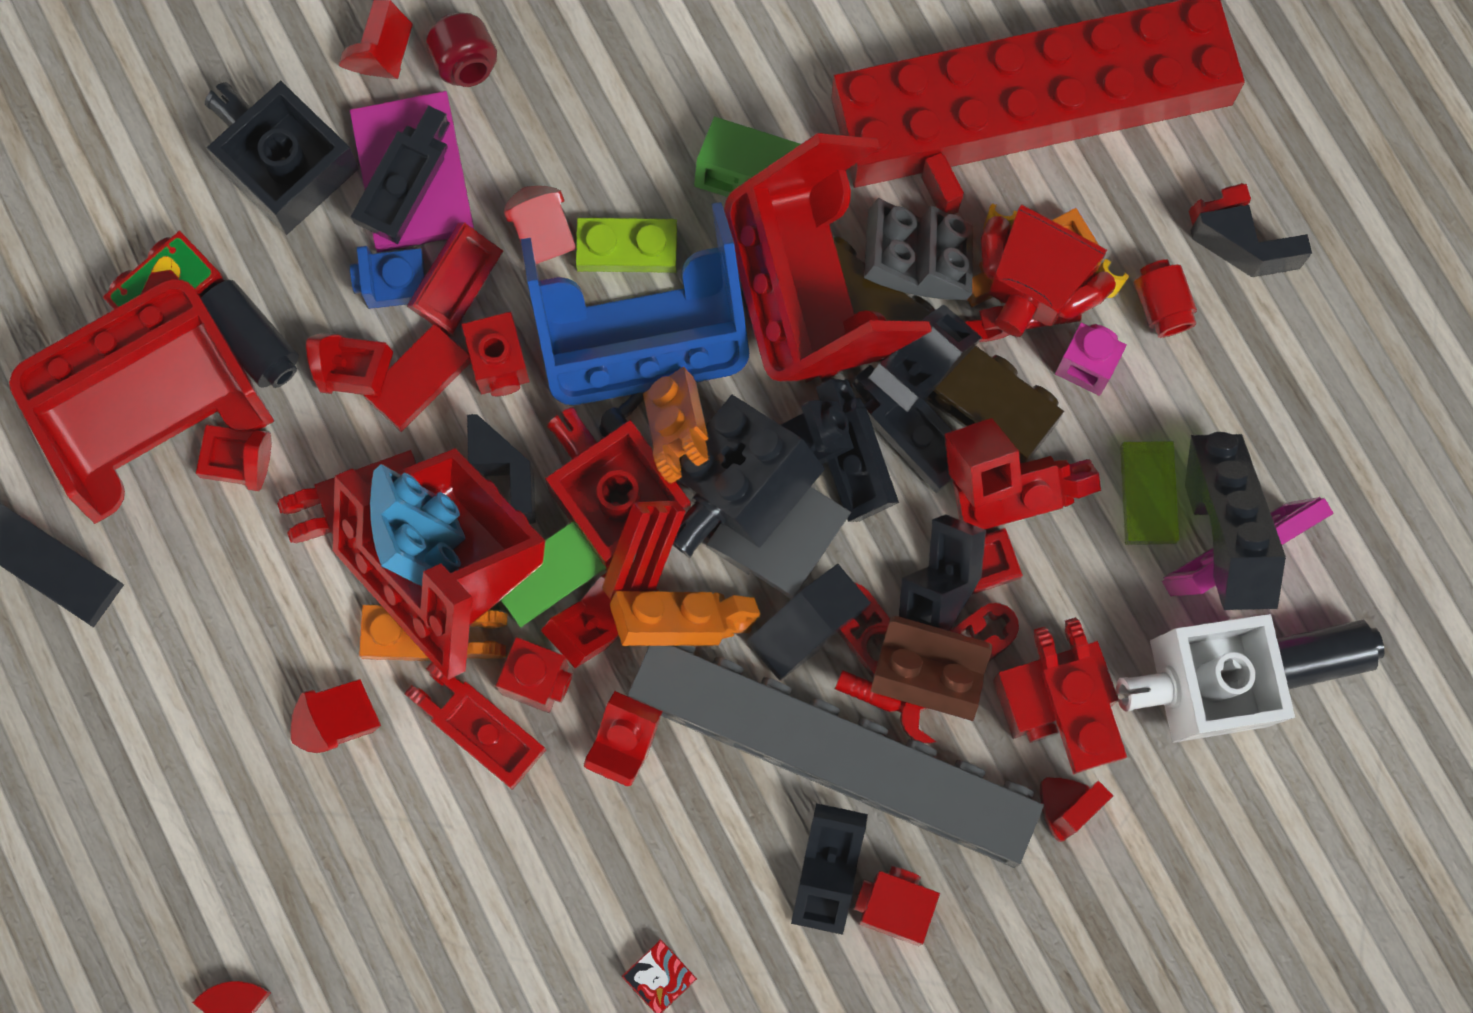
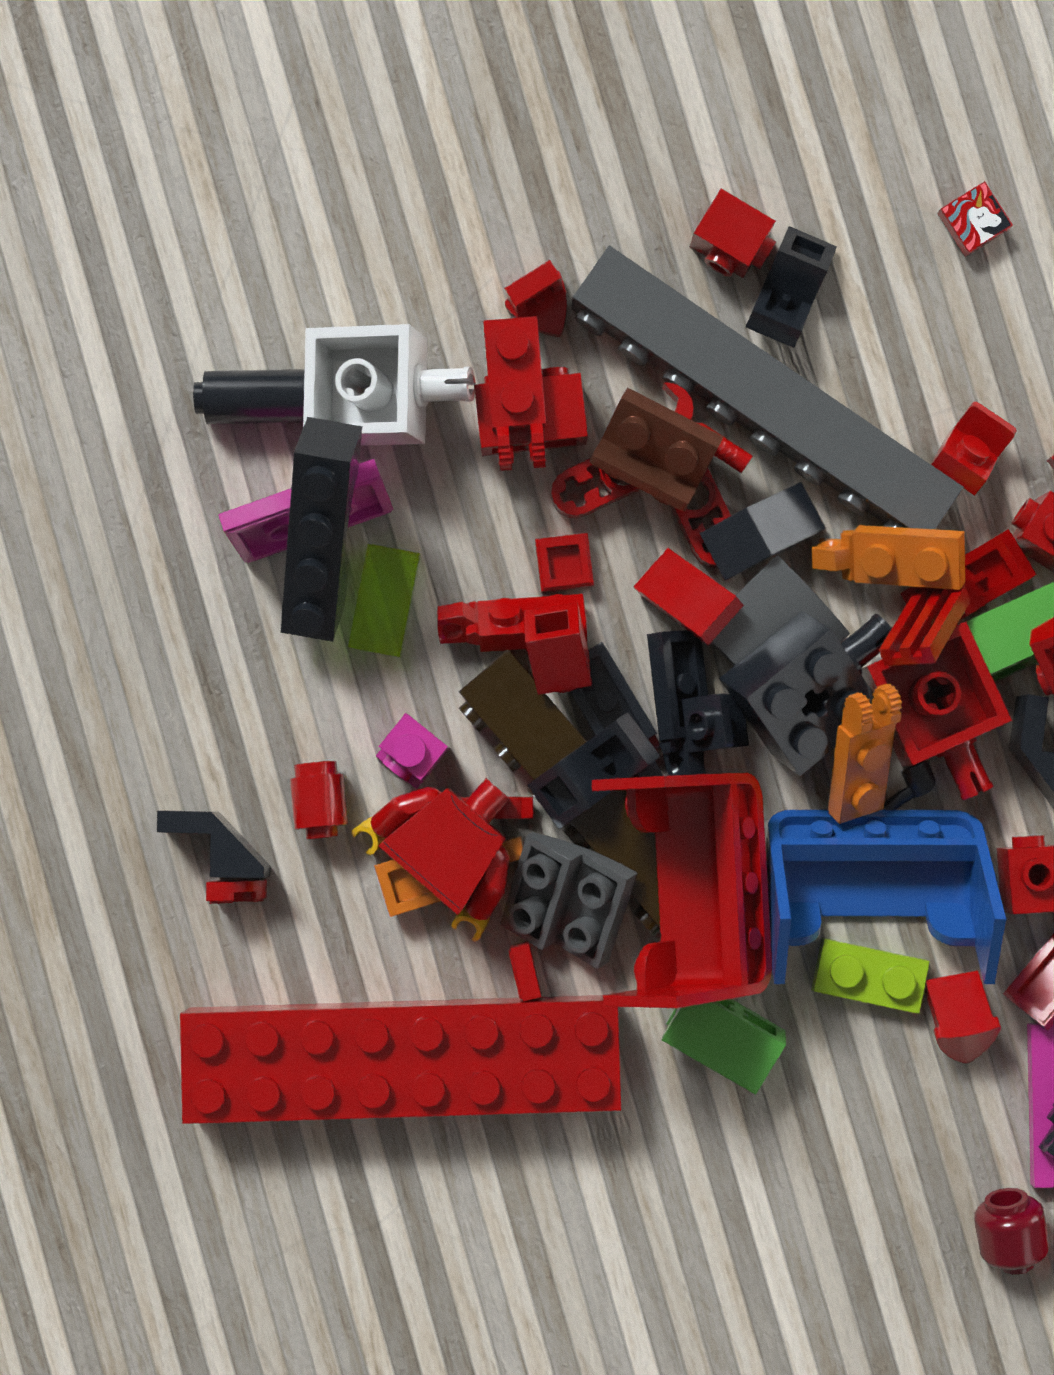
camera: 165 degrees left, 10 degrees up
(868, 543) = (688, 596): none -> red tile
(954, 569) = (622, 539): black slope -> none

